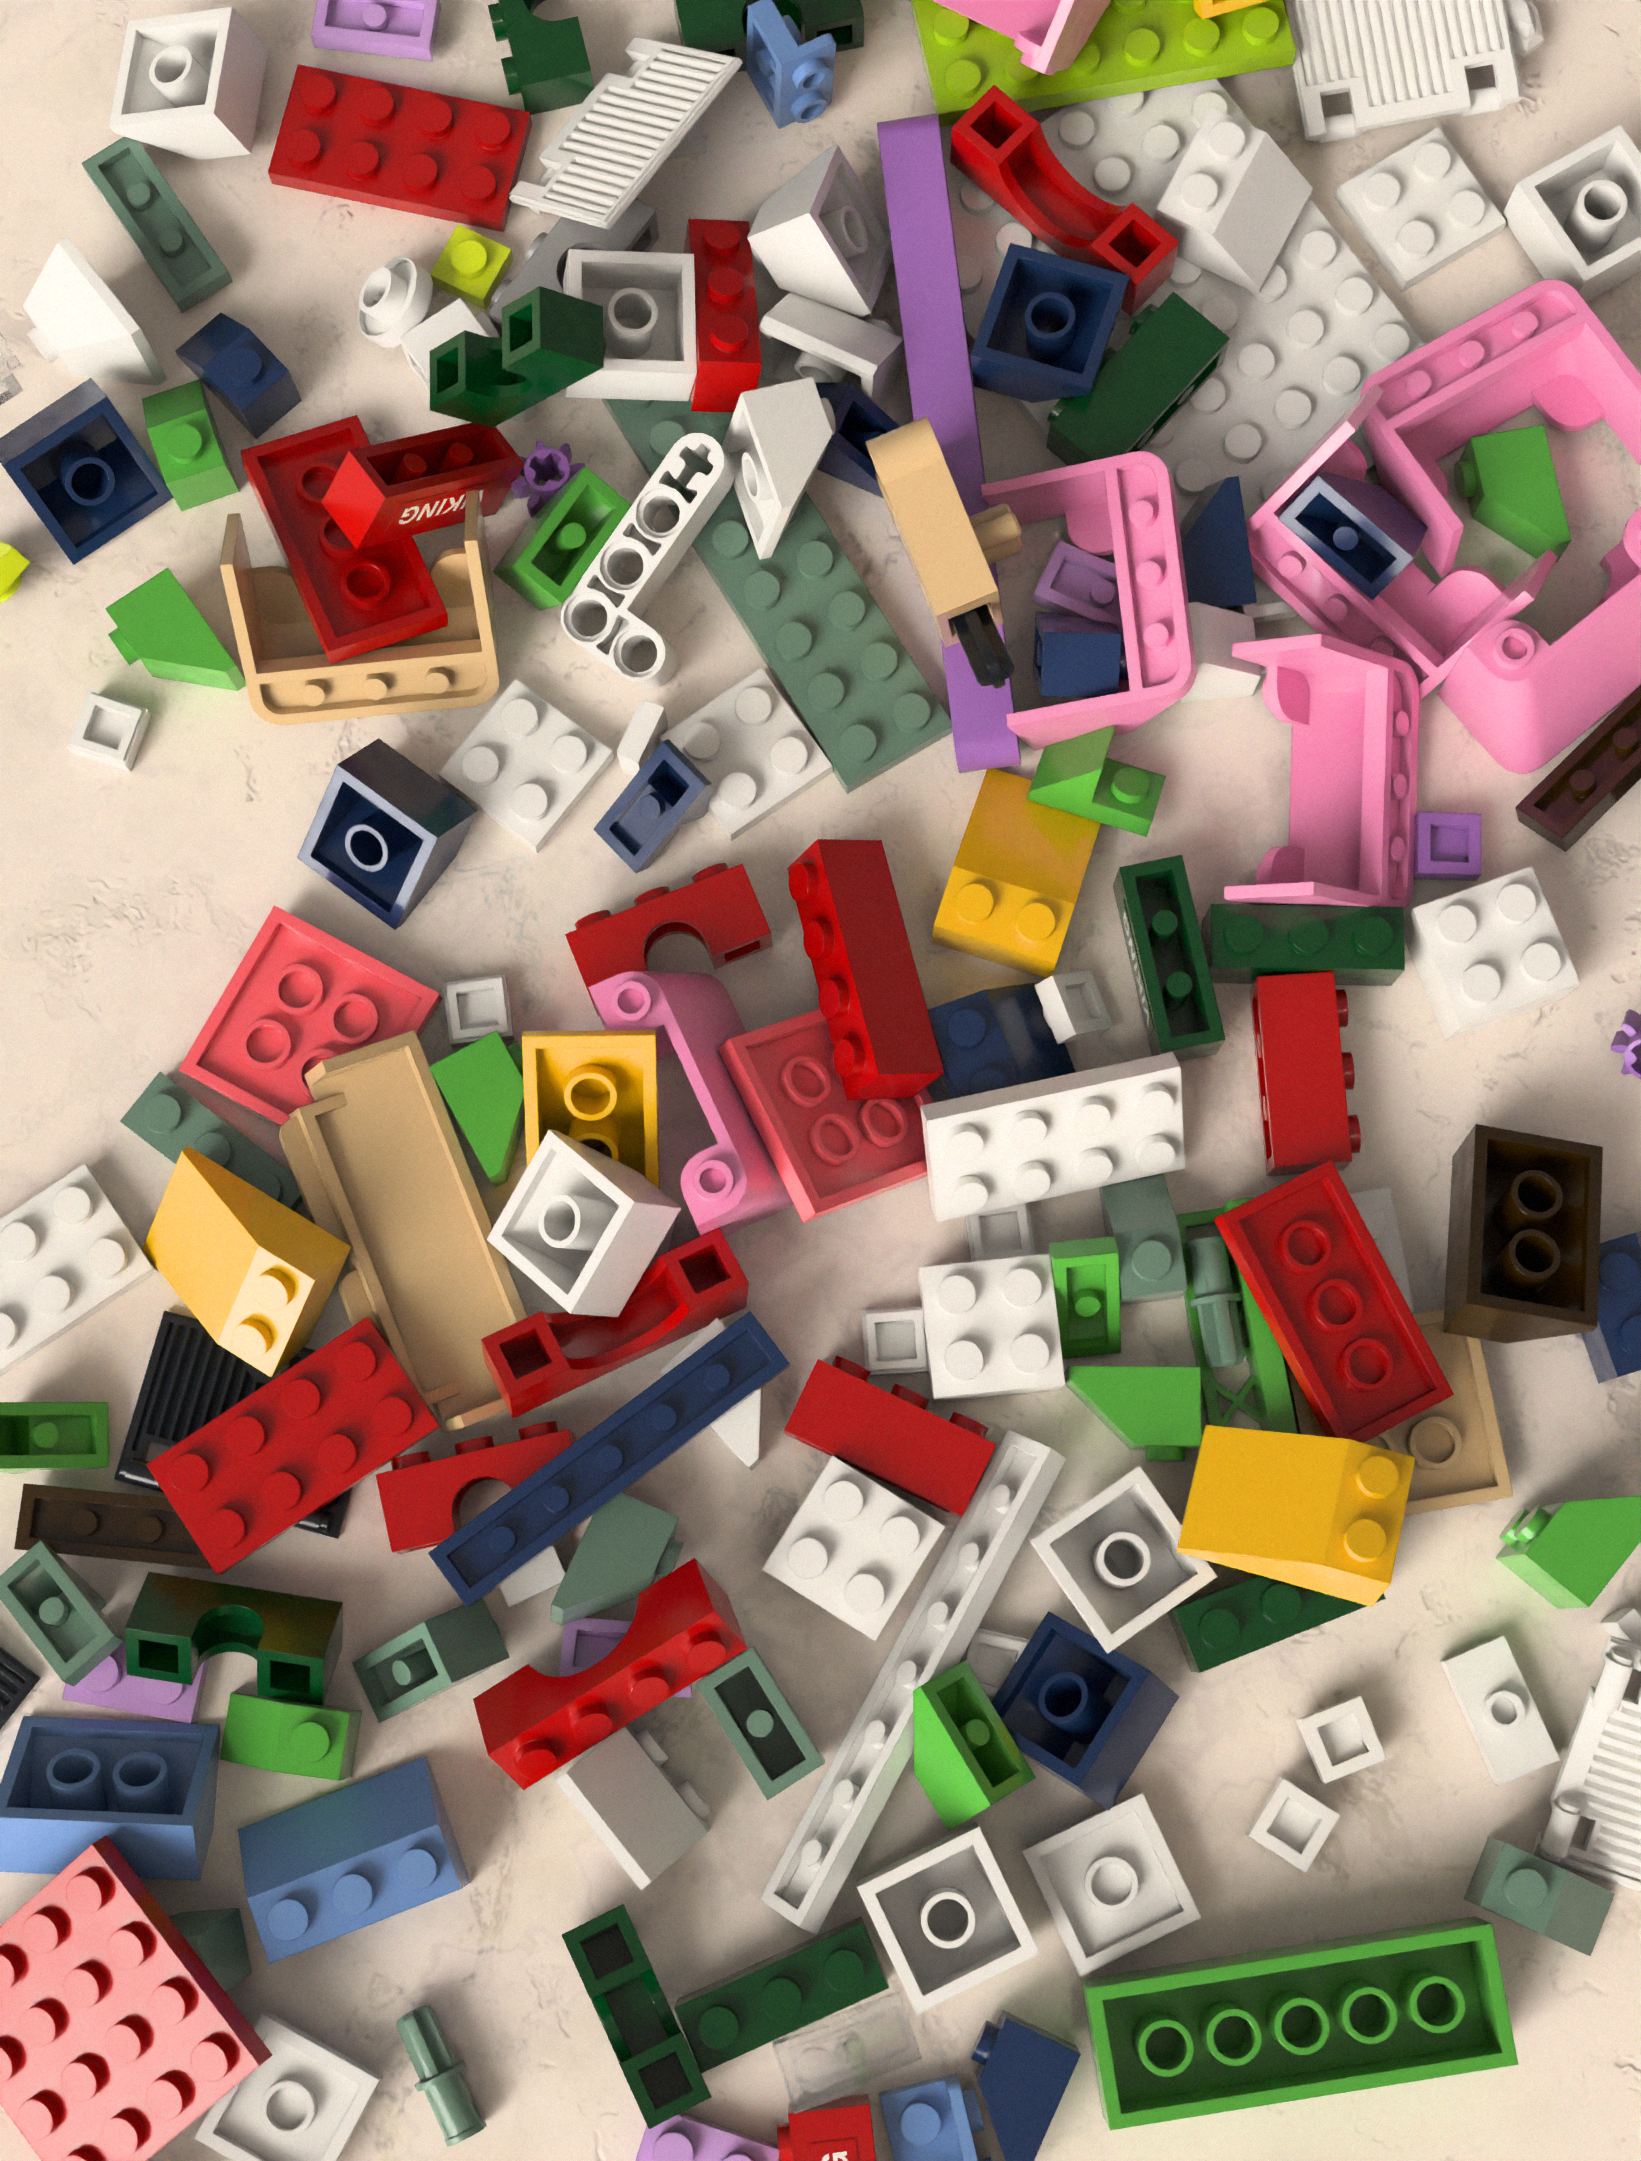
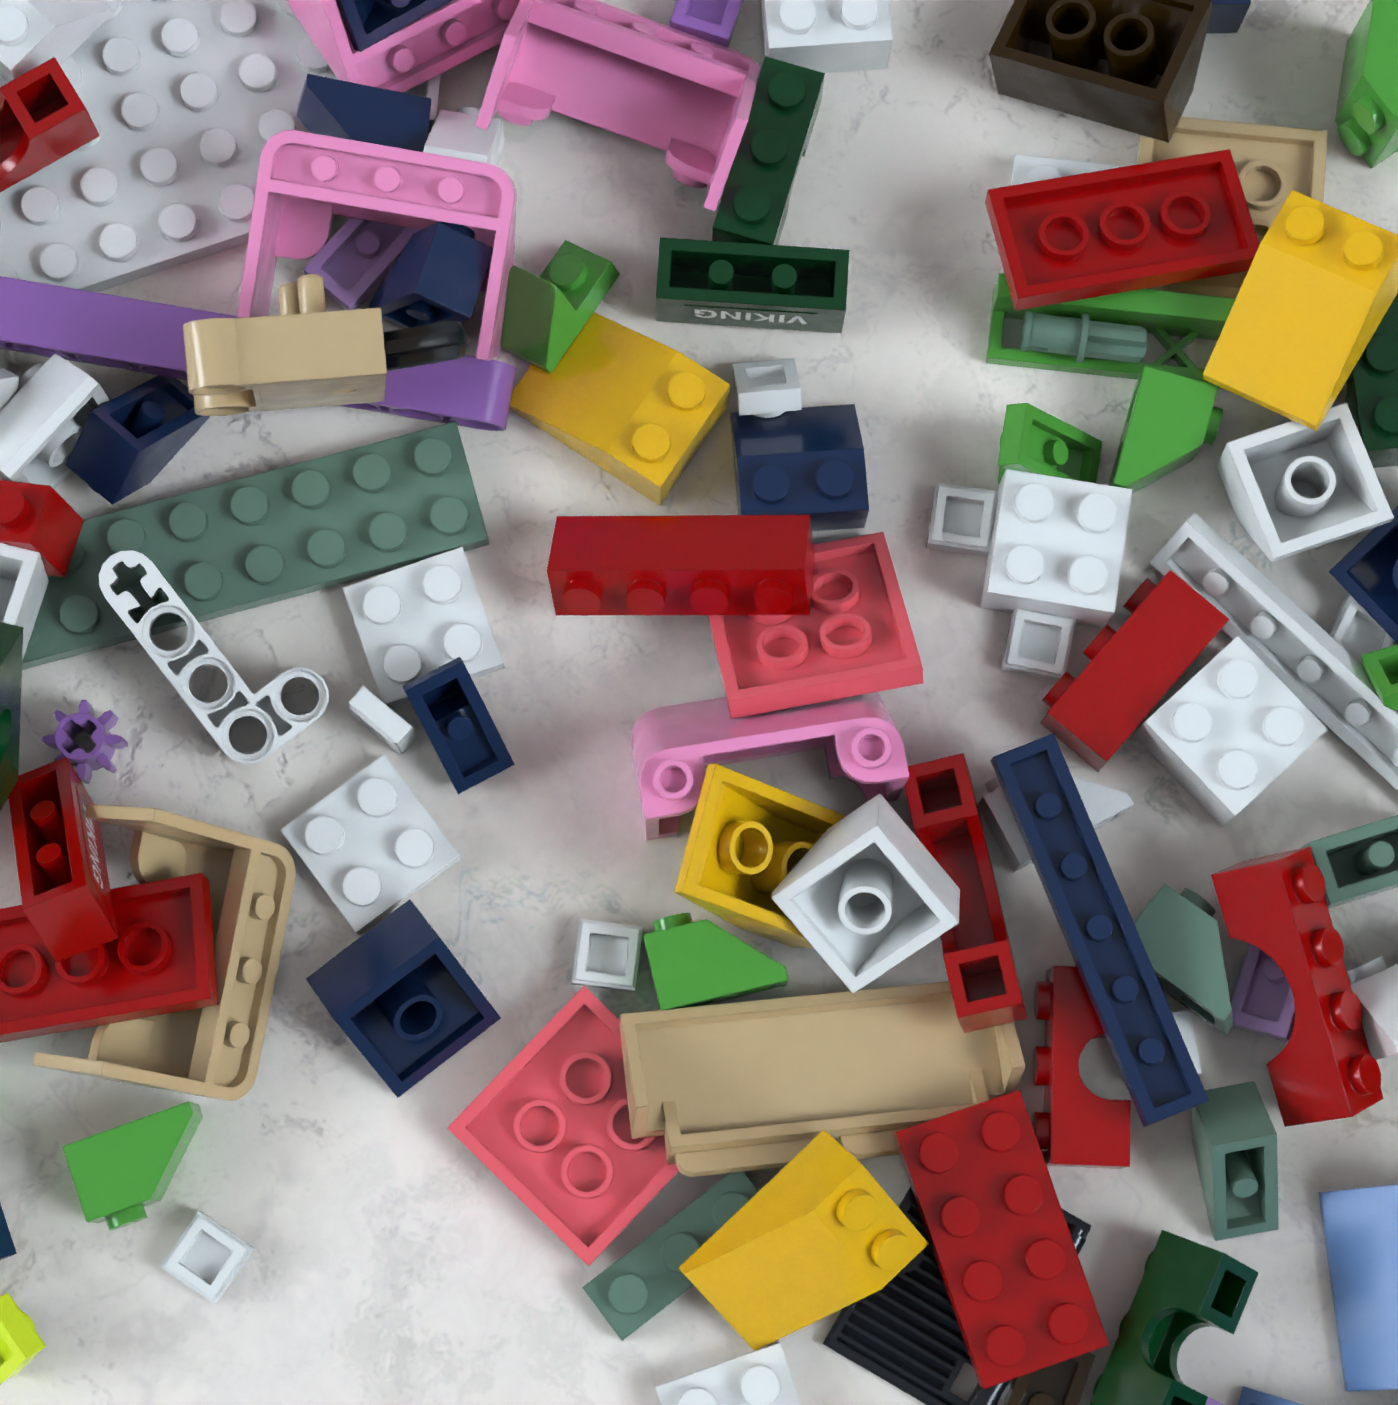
camera: 80 degrees left, 0 degrees up
(291, 1736) = (1277, 1317): bright green slope -> none
(562, 540) = (159, 740): bright green slope -> none
(714, 909) = (593, 805): red arch -> none
(775, 450) = (151, 501): white slope -> none
(1046, 326) = (96, 206): dark blue slope -> none
(1054, 1136) = (894, 436): white plate -> none
(1139, 385) = (179, 148): dark green brick -> none
(1146, 1239) = (982, 382): sand green slope -> none
(1303, 1072) = (889, 199): red brick -> none

